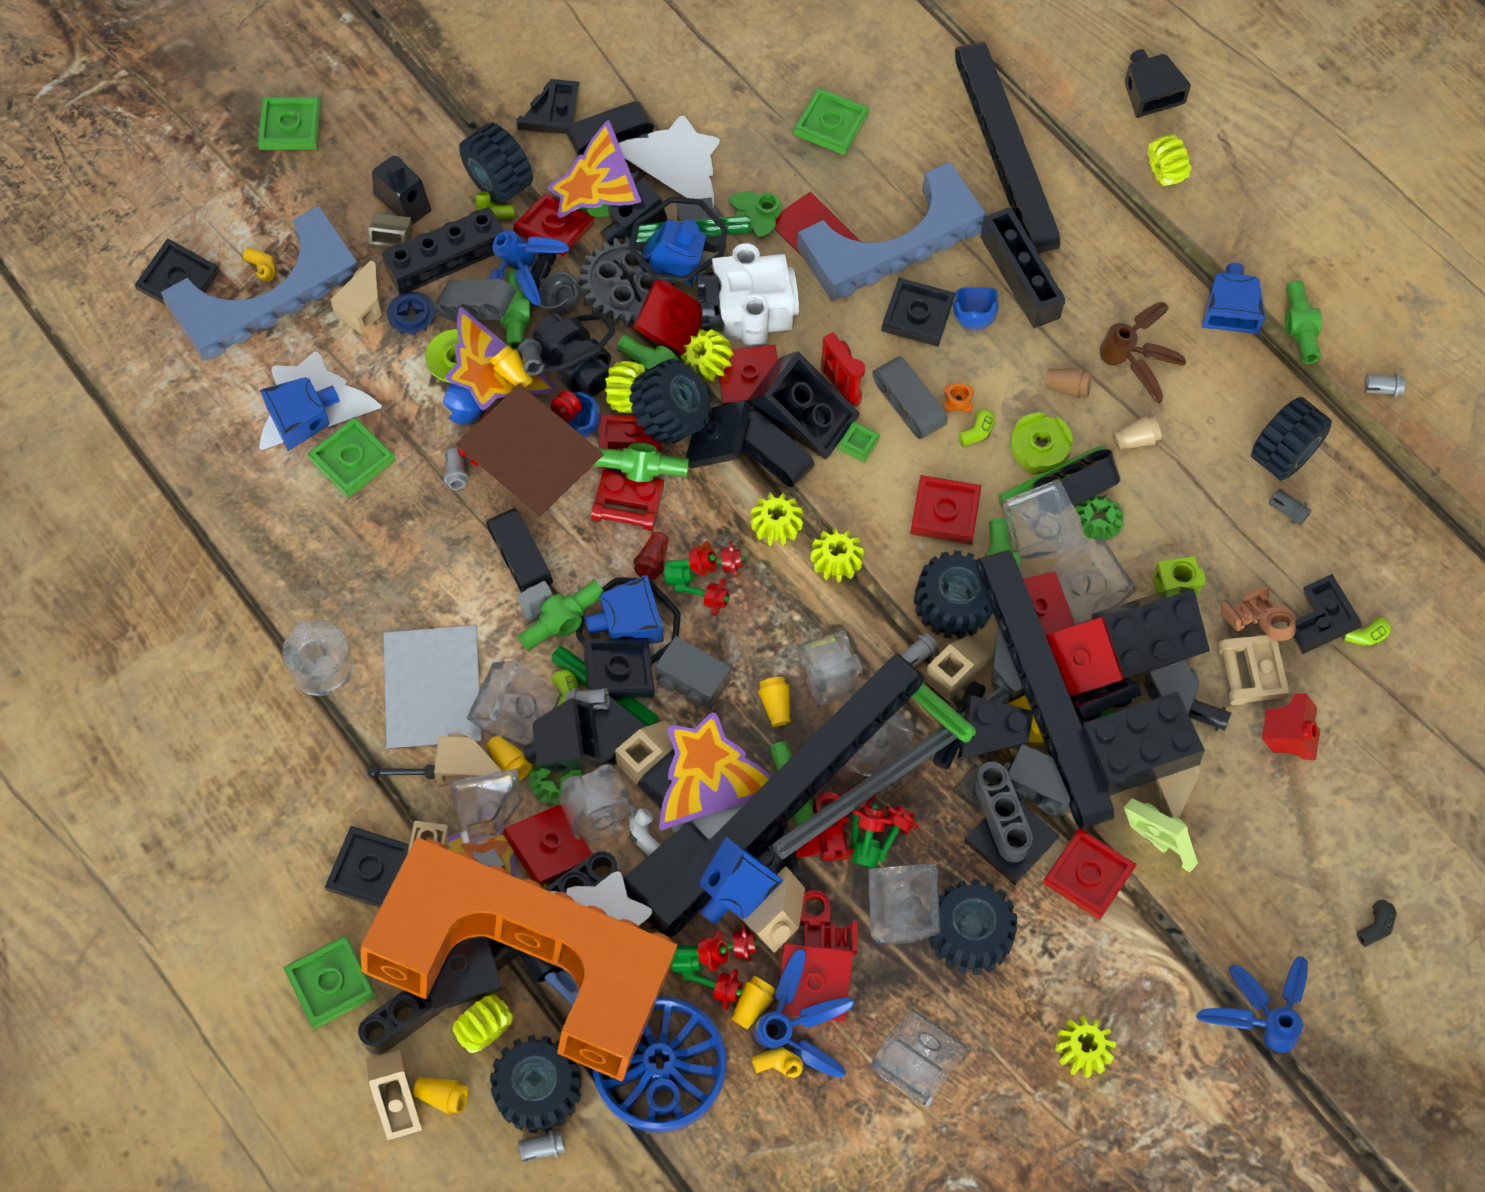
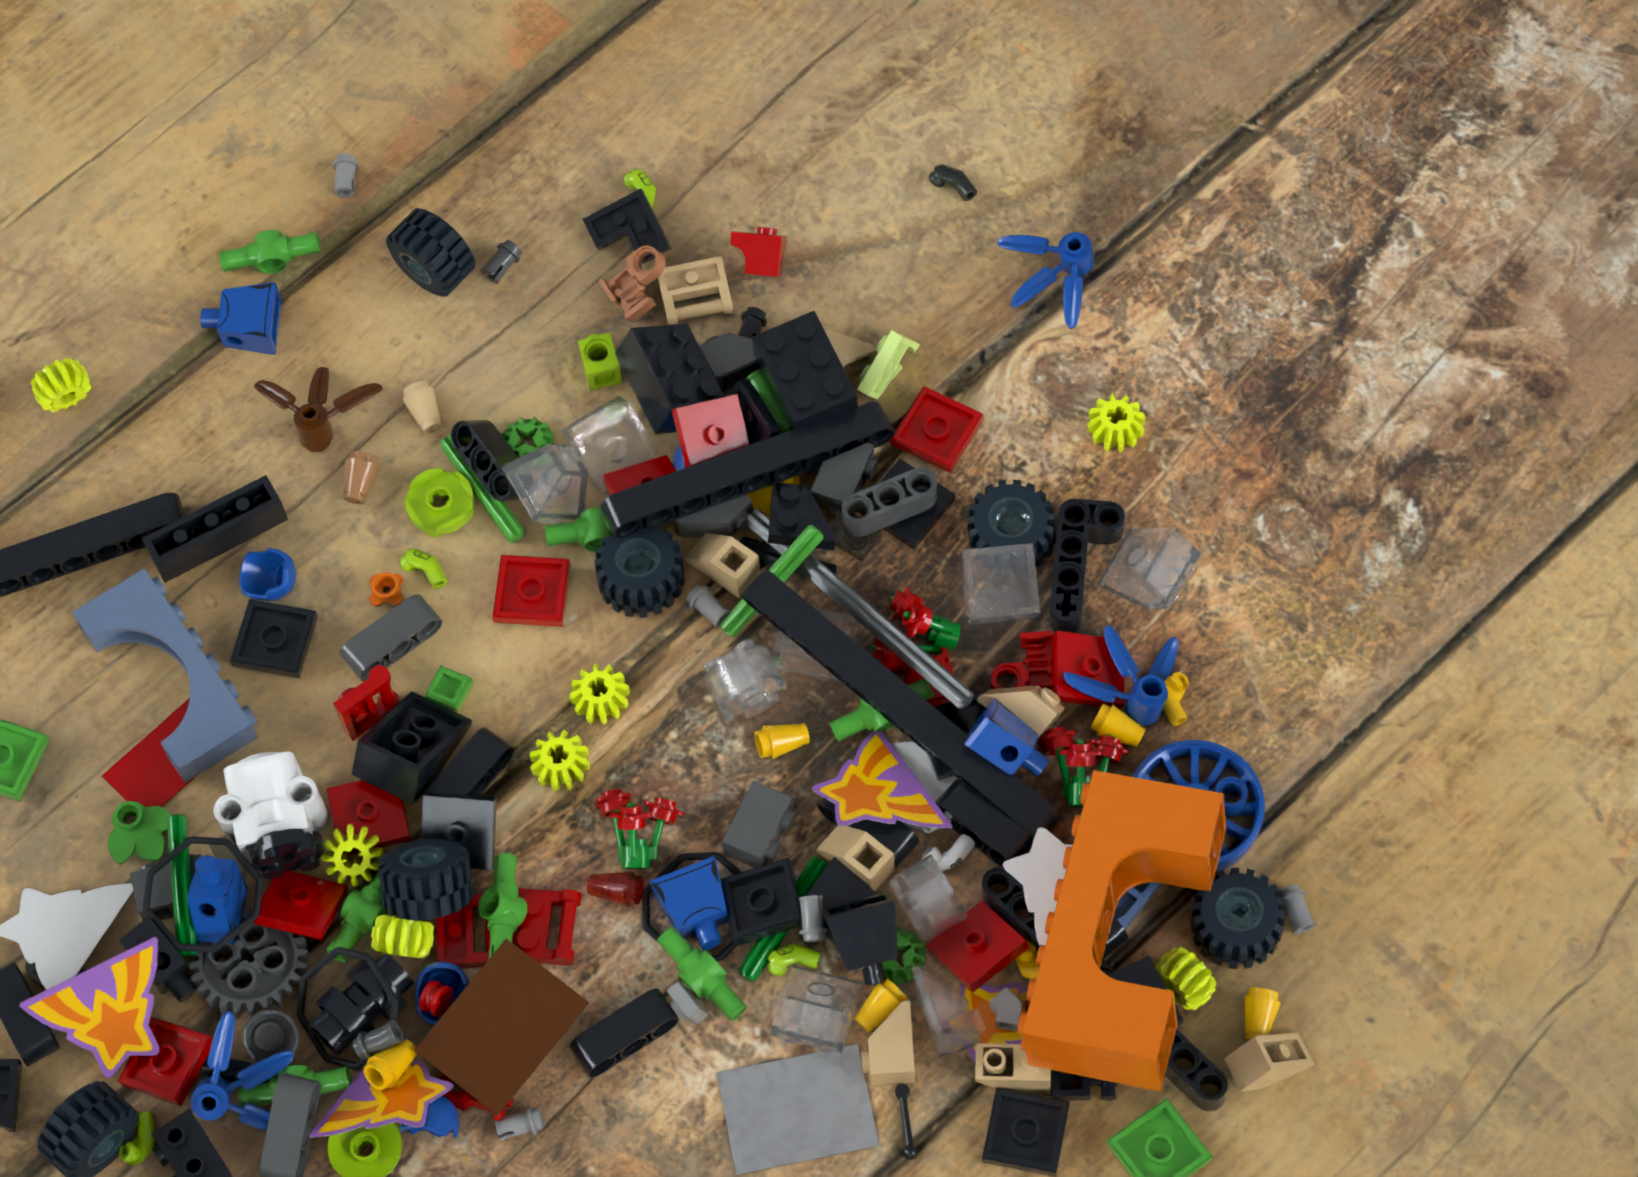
camera: 90 degrees left, 0 degrees up
(926, 987) = (1074, 566): none -> black beam

